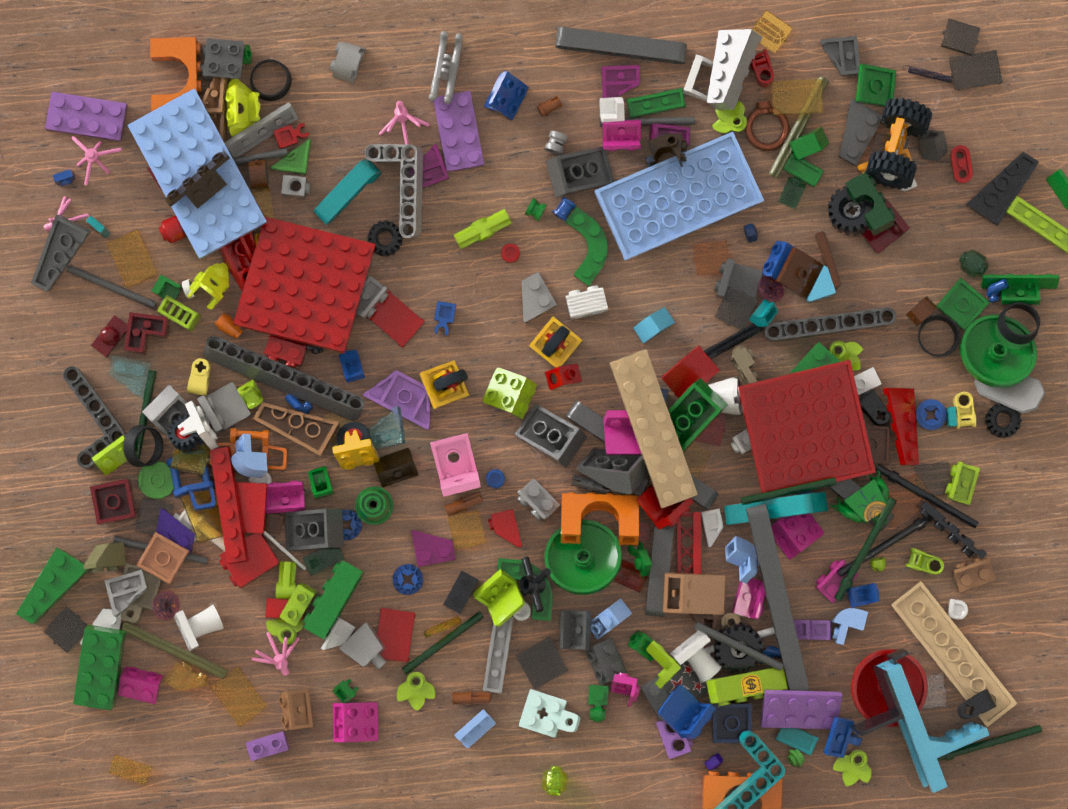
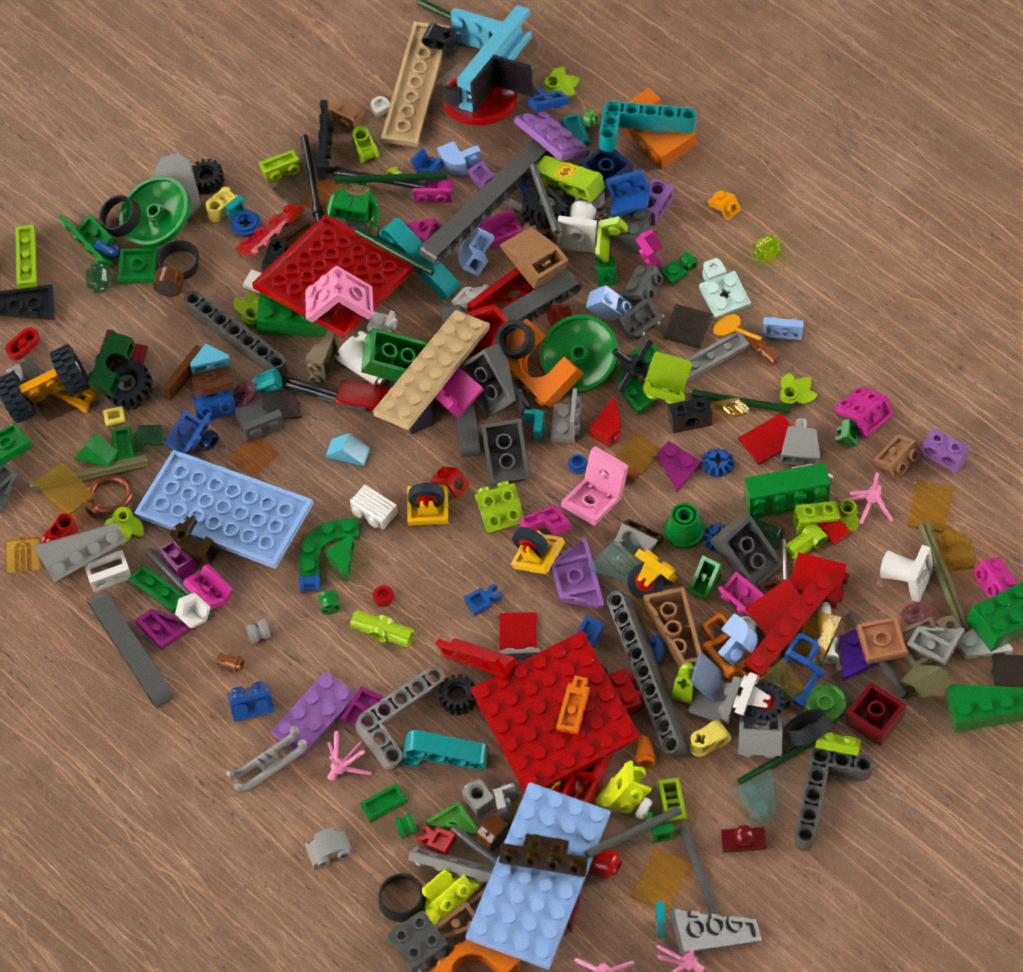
camera: 125 degrees left, 25 degrees down
(141, 327) = (710, 813): dark red brick -> none
(171, 259) = (632, 832): none -> dark grey piece
(239, 410) = (707, 677): none -> sand blue piece
(275, 199) = (503, 798): none -> light grey bracket
(291, 295) = (573, 705): none -> orange hinge
(317, 122) = (405, 825): none -> green wheel
(350, 123) = (383, 803): none -> green tile
(395, 269) = (477, 656): none -> red fence
(466, 416) = (550, 518): none -> dark pink plate
(513, 690) = (730, 324): none -> light orange piece
(535, 297) = (403, 549): light grey wing -> none
(548, 477) = (536, 417): none -> teal bracket
(564, 247) = (341, 556): none -> green slope
(579, 171) = (269, 596): dark grey slope -> none
(623, 525) = (527, 345): none -> black tyre
(624, 788) = (726, 203): none -> light orange bracket
(642, 560) = (543, 314): green plate -> none
(714, 761) = (646, 163): dark purple tile -> none
(768, 221) = (187, 432): none -> blue bracket
(771, 406) = (342, 288): none -> bright pink bracket
(831, 180) = (114, 416): none -> light yellow slope
(858, 132) = (50, 432): dark grey wing -> none

